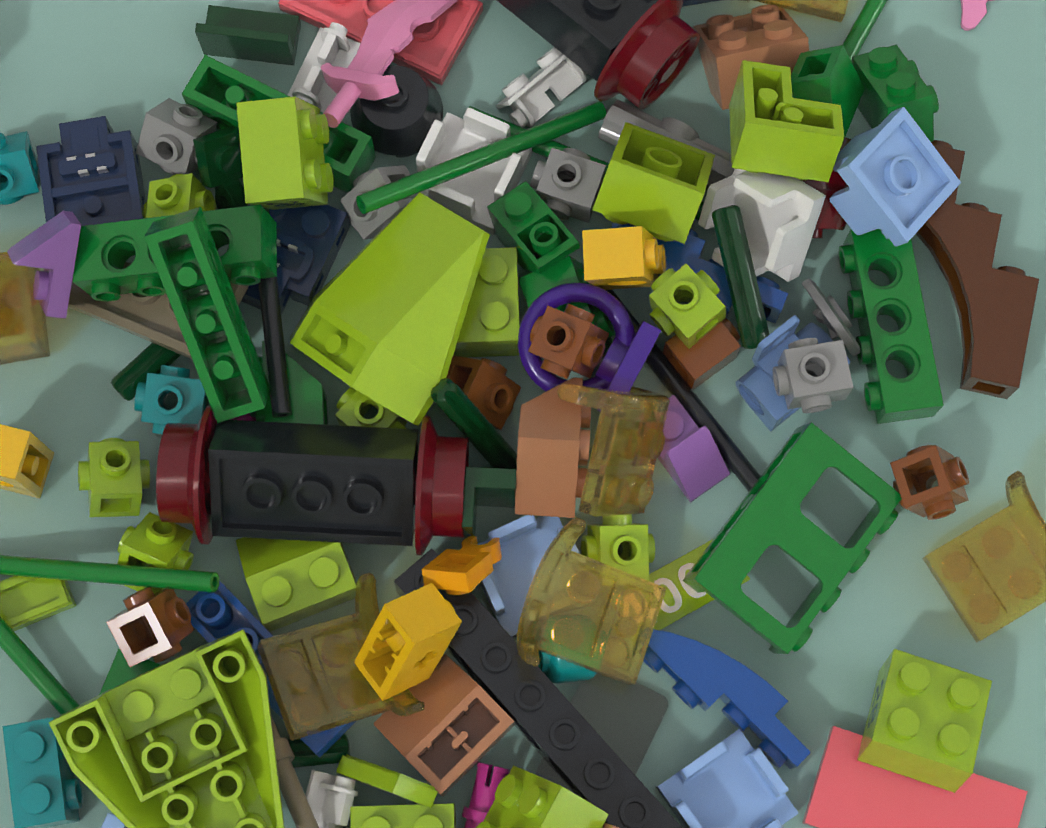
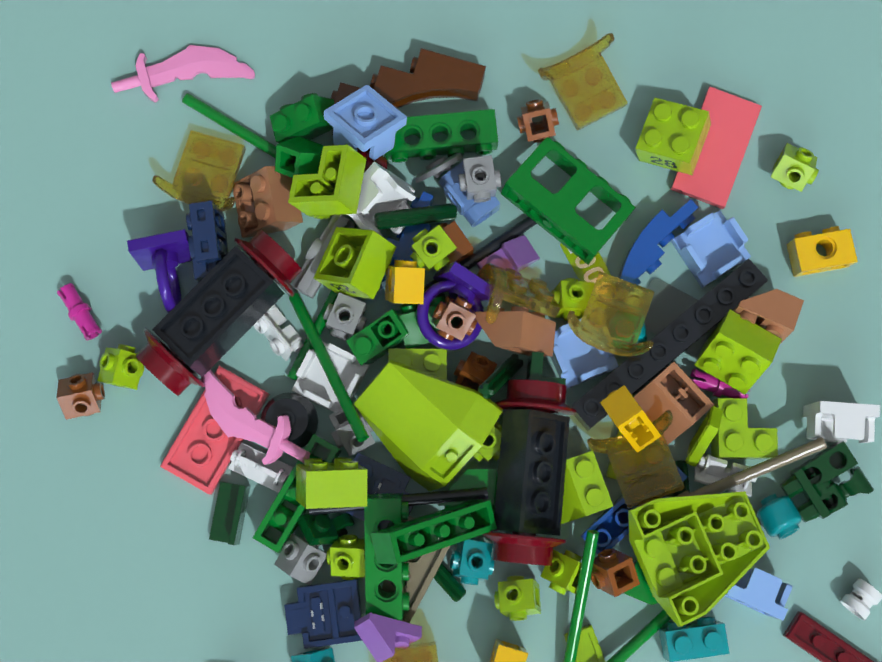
camera: 90 degrees left, 5 degrees up
(462, 569) = (588, 386): light orange plate -> none

